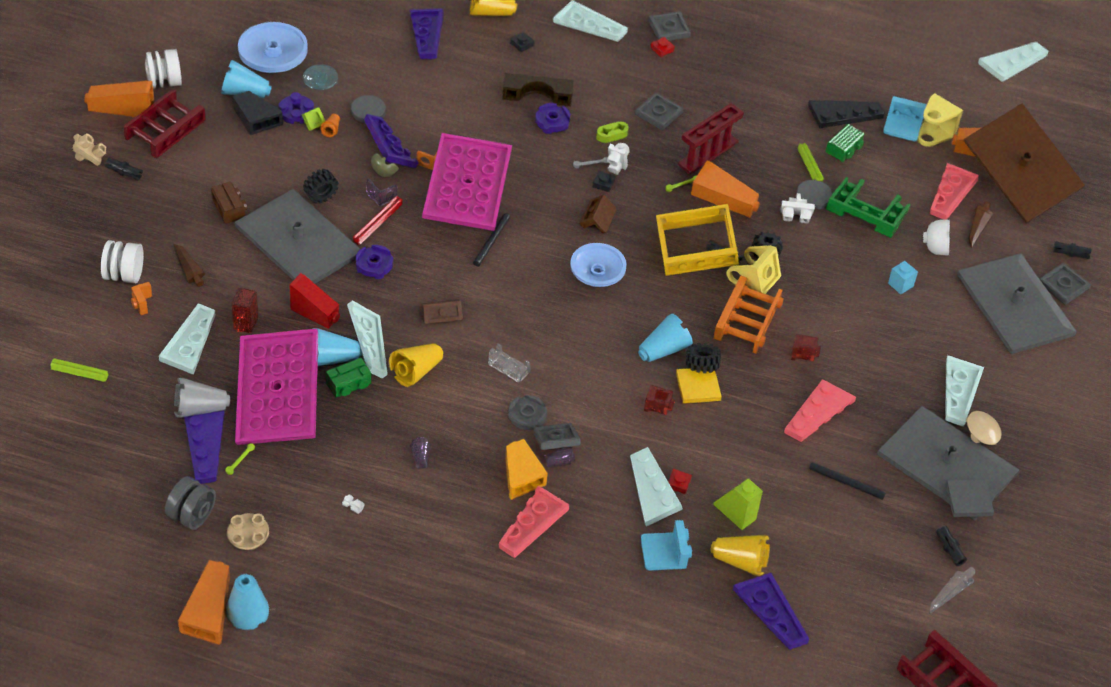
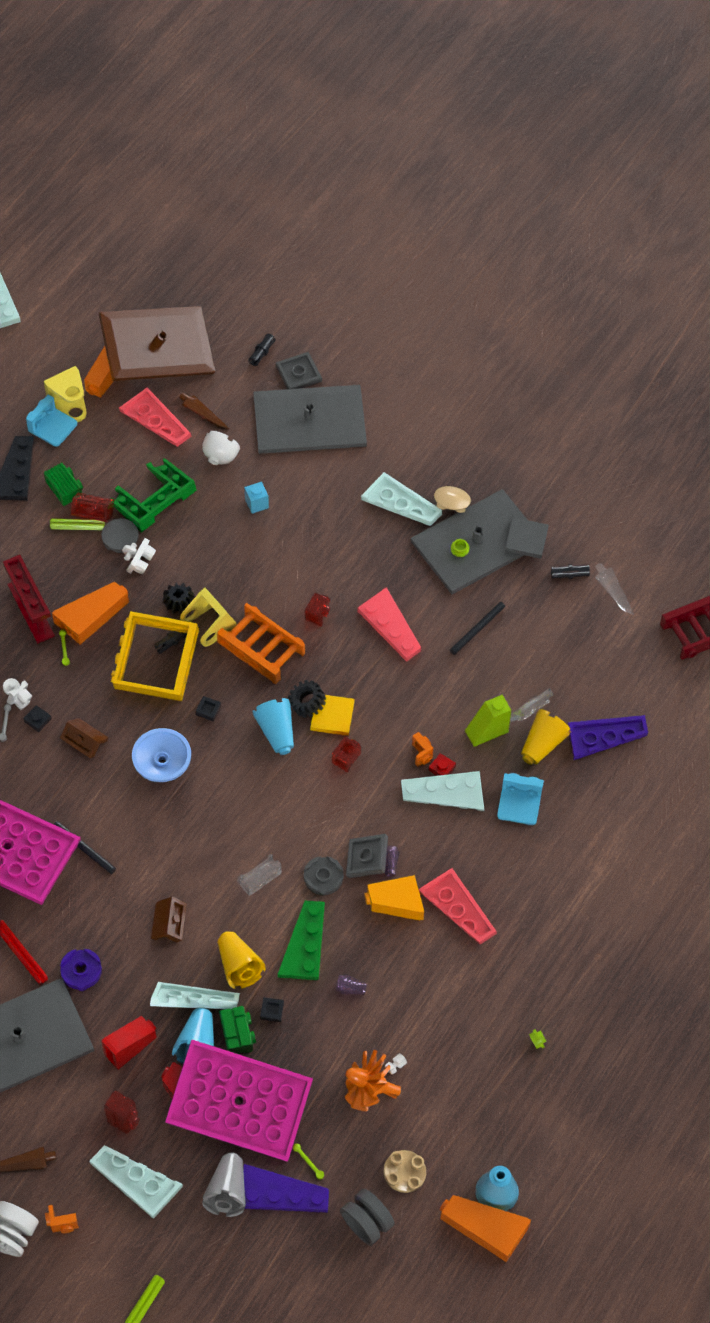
camera: 70 degrees left, 10 degrees up
(322, 476) = (367, 1083): none -> orange piece
(378, 400) = (272, 1009): none -> black plate
(412, 611) = (538, 1039): none -> lime plate
(453, 413) = (305, 945): none -> green wing
(663, 291) = (208, 708): none -> black plate
(688, 461) = (423, 746): none -> orange bracket
(781, 538) = (531, 706): none -> clear plate
(830, 165) = (92, 507): none -> clear red brick
(928, 443) = (460, 548): none -> lime plate

